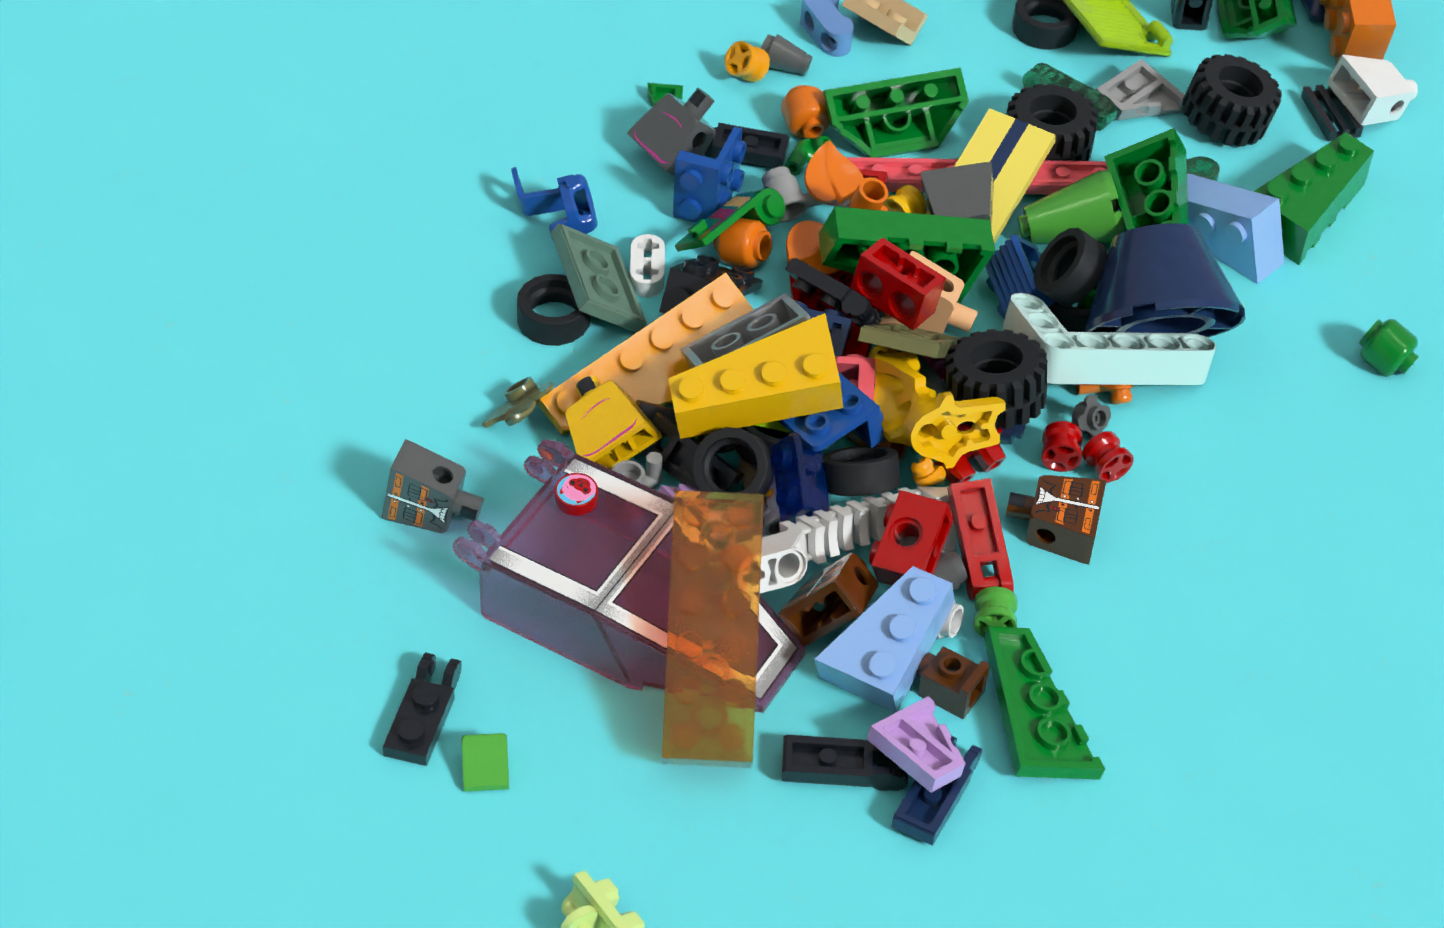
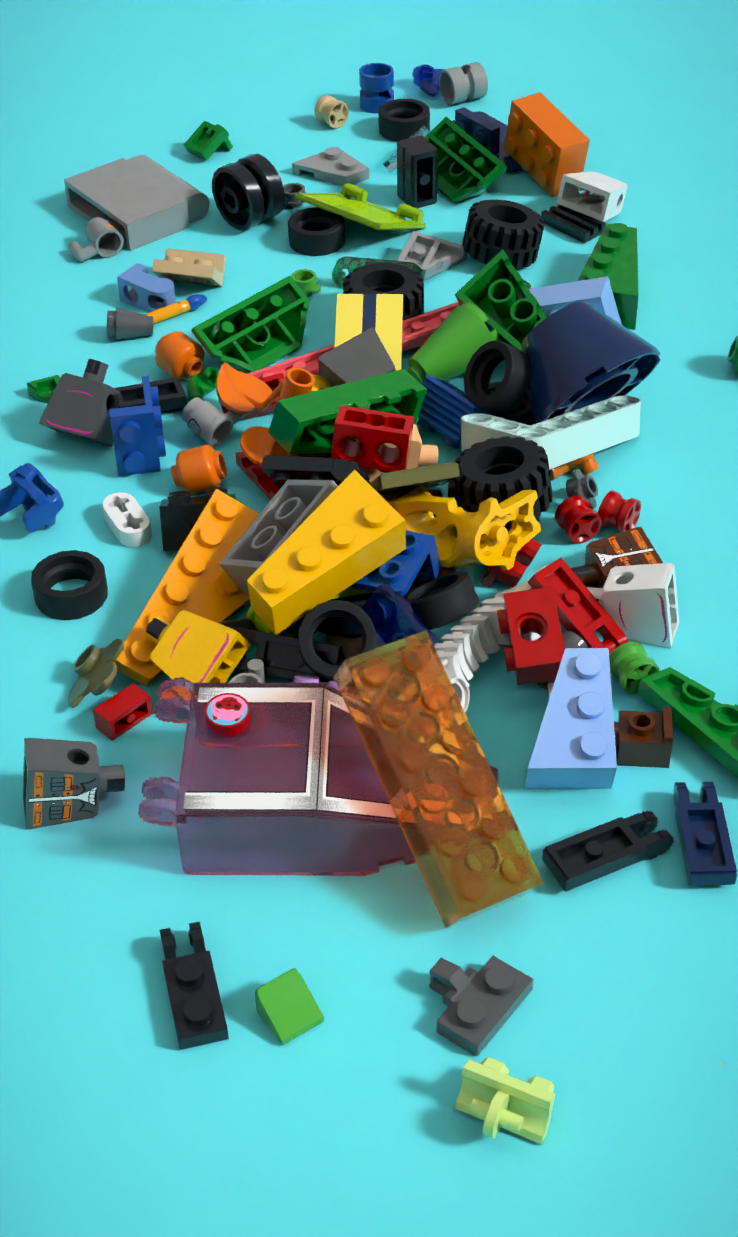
camera: 25 degrees left, 5 degrees down
(515, 448) = (122, 711): none -> red piece
(598, 278) = (96, 542): sand green tile -> none
(640, 833) = (477, 1001): none -> dark grey hinge
(747, 61) = (94, 337): light orange wheel -> none
(761, 205) = (177, 447): green door -> none
(842, 55) = (191, 303): none -> light orange piece
(843, 588) = (502, 711): reddish brown torso -> none
(919, 745) = (671, 802): lavender wing -> none
(926, 473) = (491, 582): light orange arm -> none
(990, 75) = (307, 281): none -> bright green plate
(1047, 556) = (642, 602): none -> white torso

